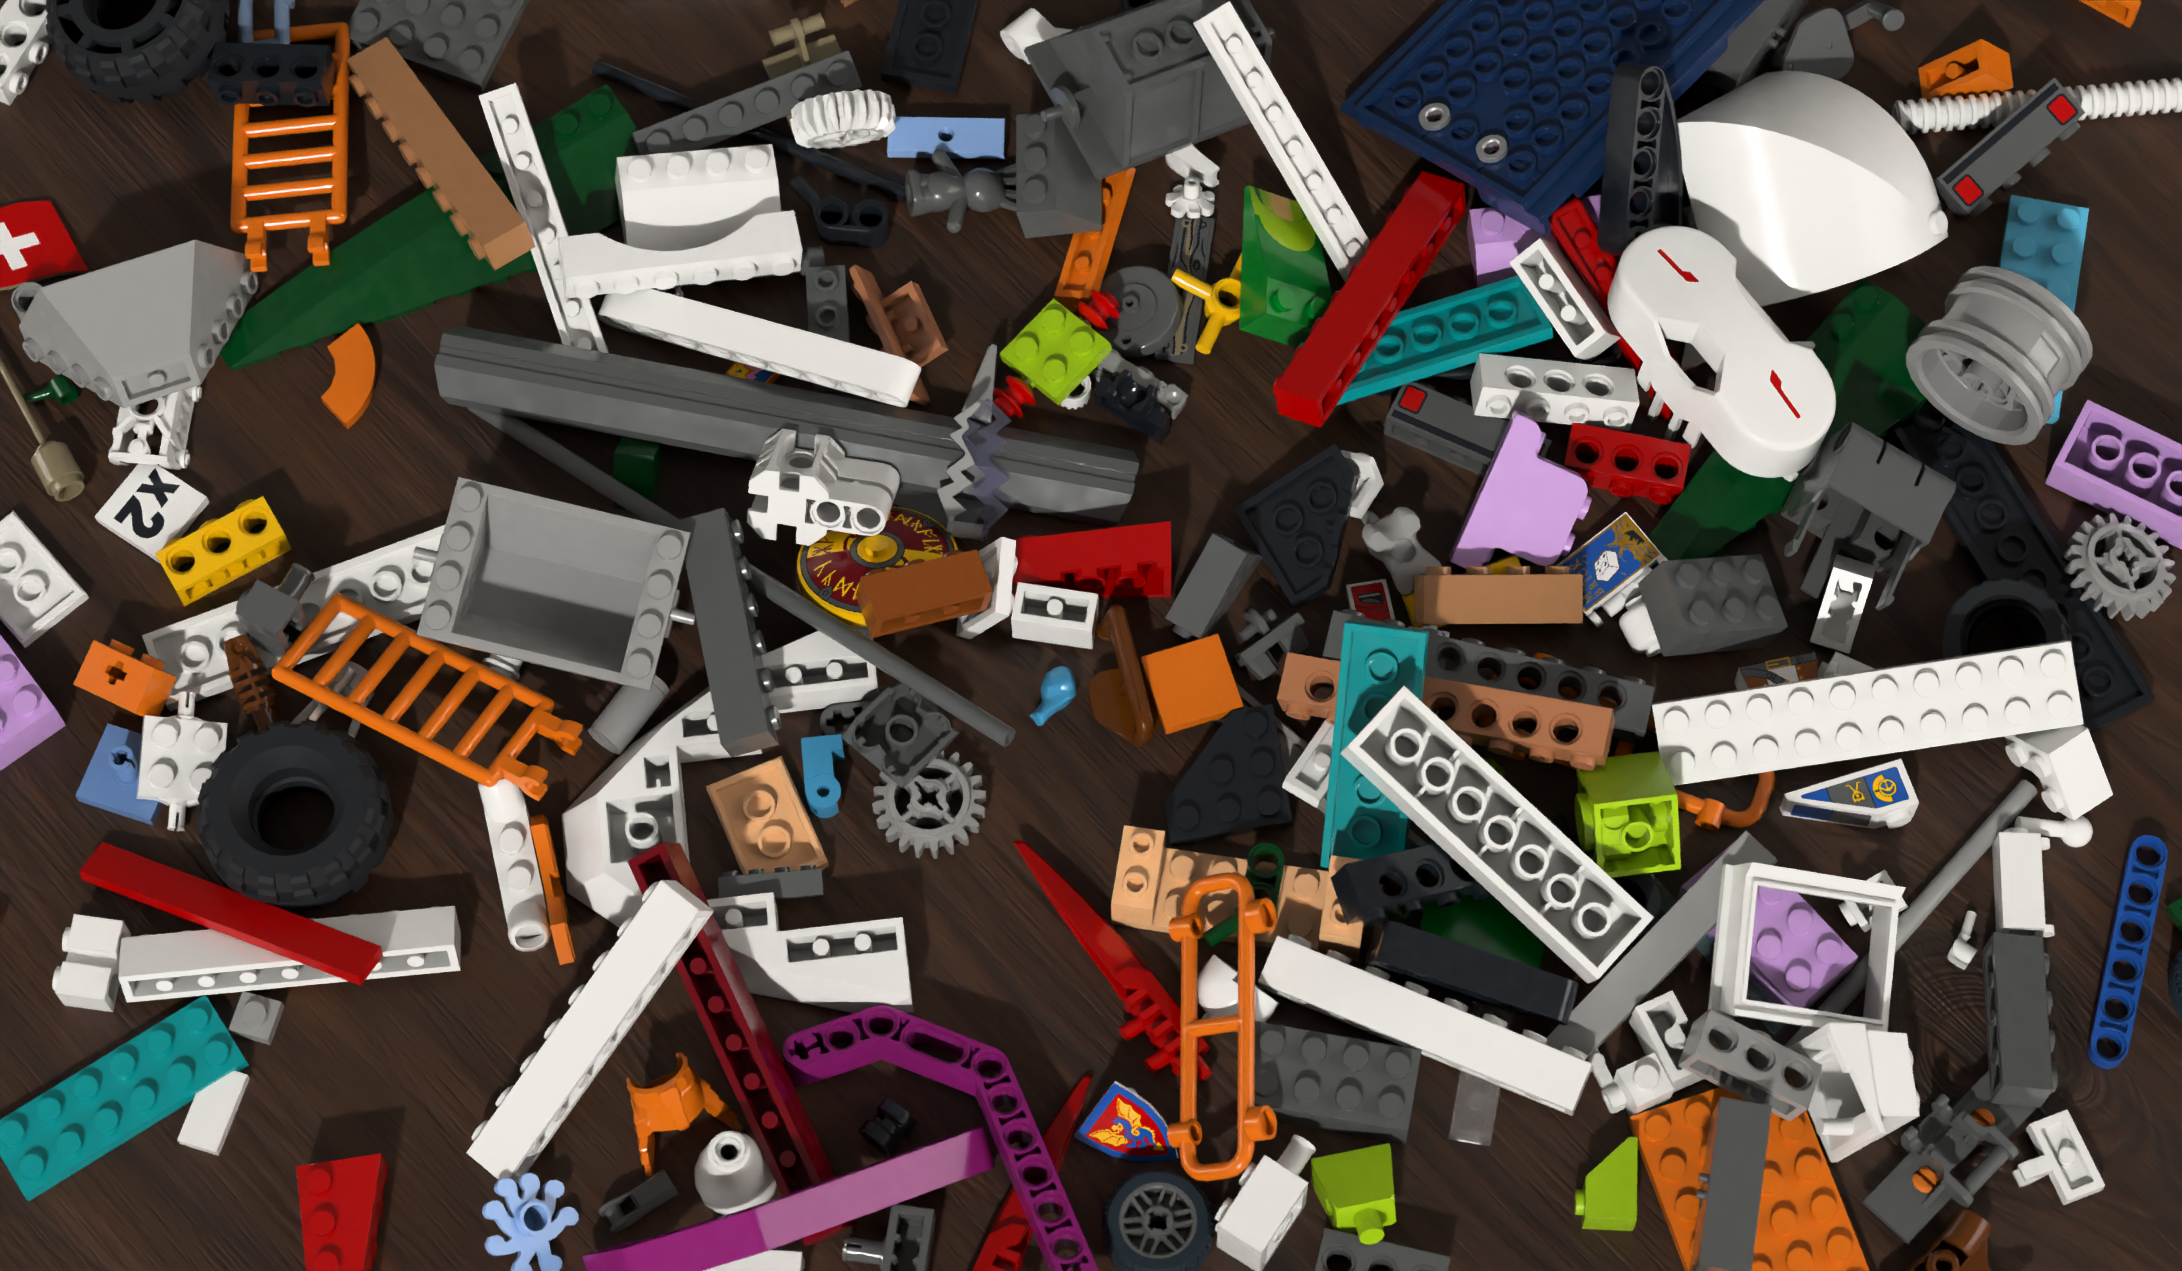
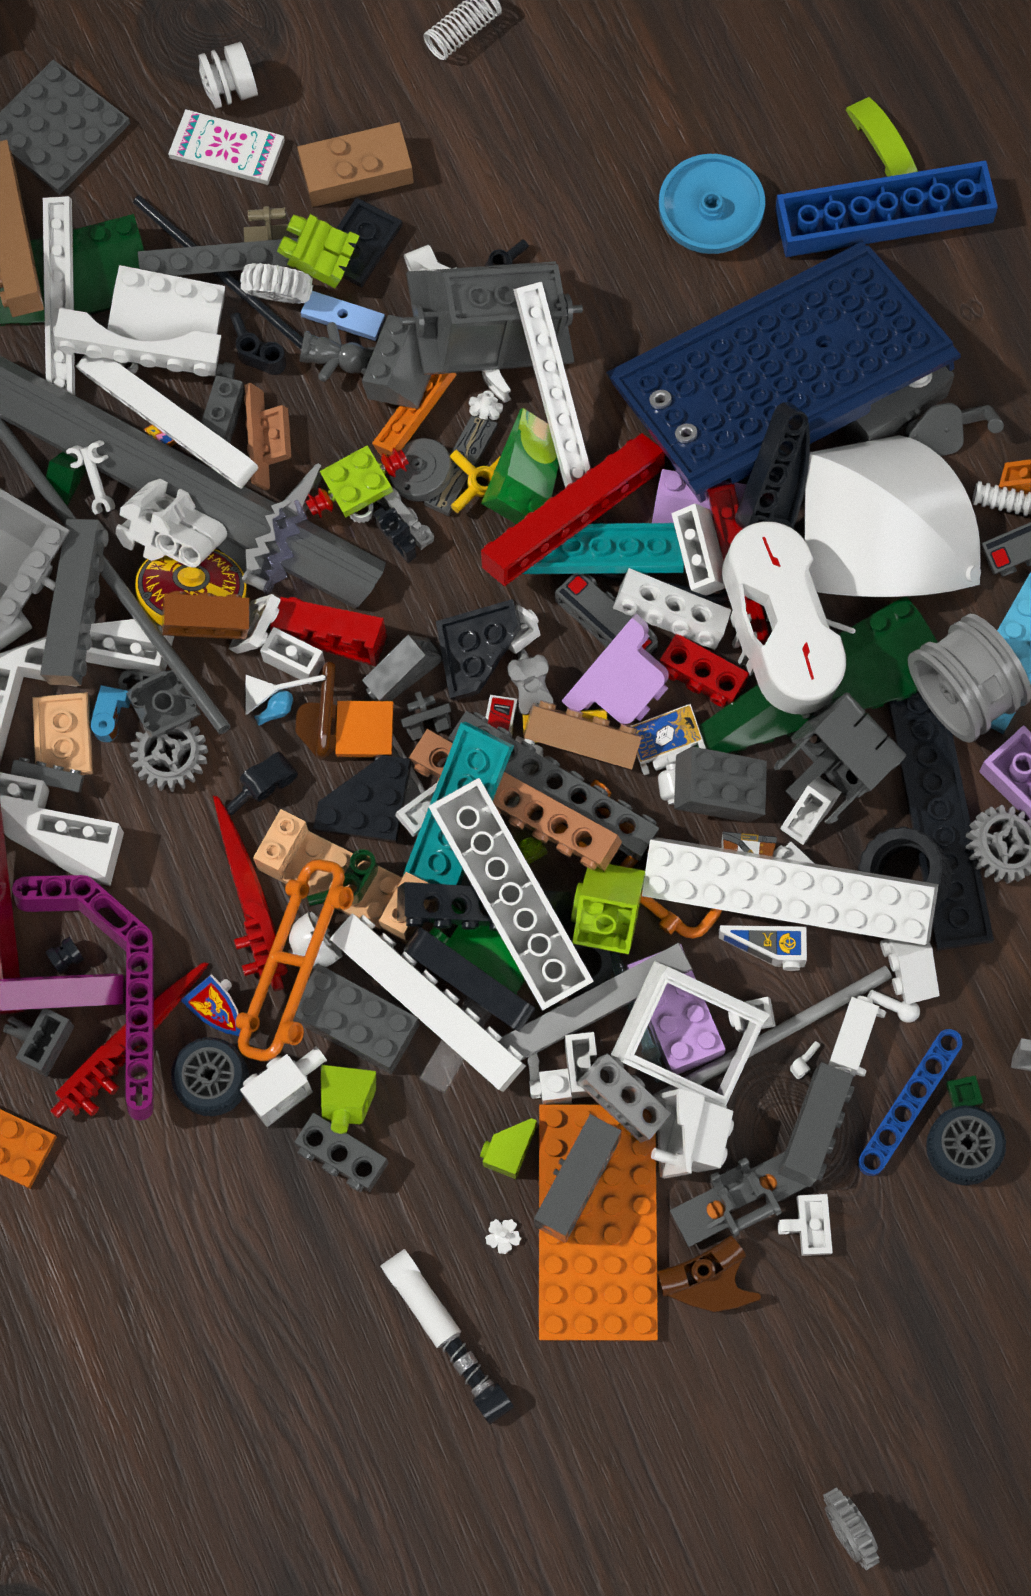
camera: 20 degrees right, 5 degrees up
(669, 430) = (89, 457): none -> white bar
(885, 55) = (319, 249): none -> lime hips
(1023, 679) = (258, 690): none -> white piece
(1077, 798) = (262, 780): none -> black beam

